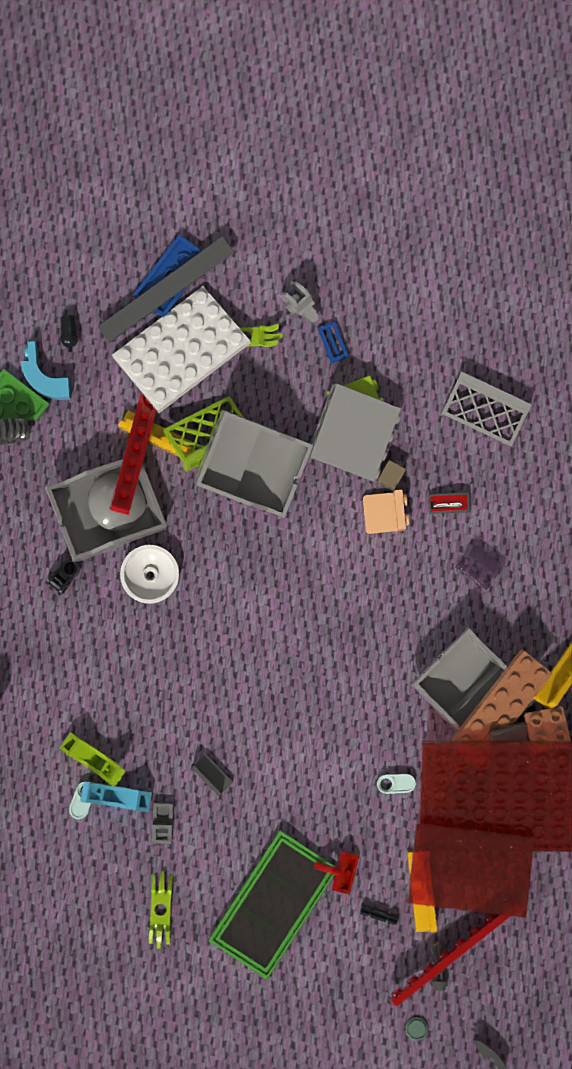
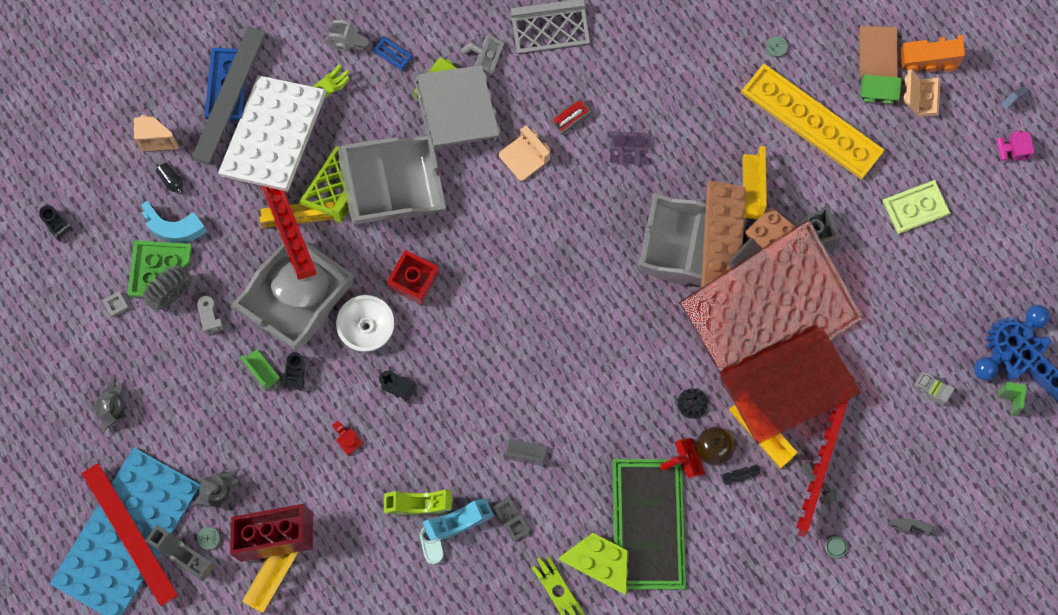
camera: 30 degrees left, 10 degrees down
(24, 473) = (207, 310): none -> light grey leg
(37, 554) = (261, 369): none -> bright green panel
(71, 664) = (348, 440): none -> red plate
(76, 283) = (152, 135): none -> light nougat slope
(144, 648) = (399, 387): none -> black piece
(211, 910) = (600, 561): none -> lime wing
(216, 560) = (413, 277): none -> red brick
(374, 876) = (715, 446): none -> dark brown cylinder
(383, 817) = (696, 411): none -> black gear
(391, 474) = (509, 123): dark tan brick -> none
(400, 783) = (684, 358): light aqua piece -> none
(414, 399) = (487, 53): none -> light grey plate

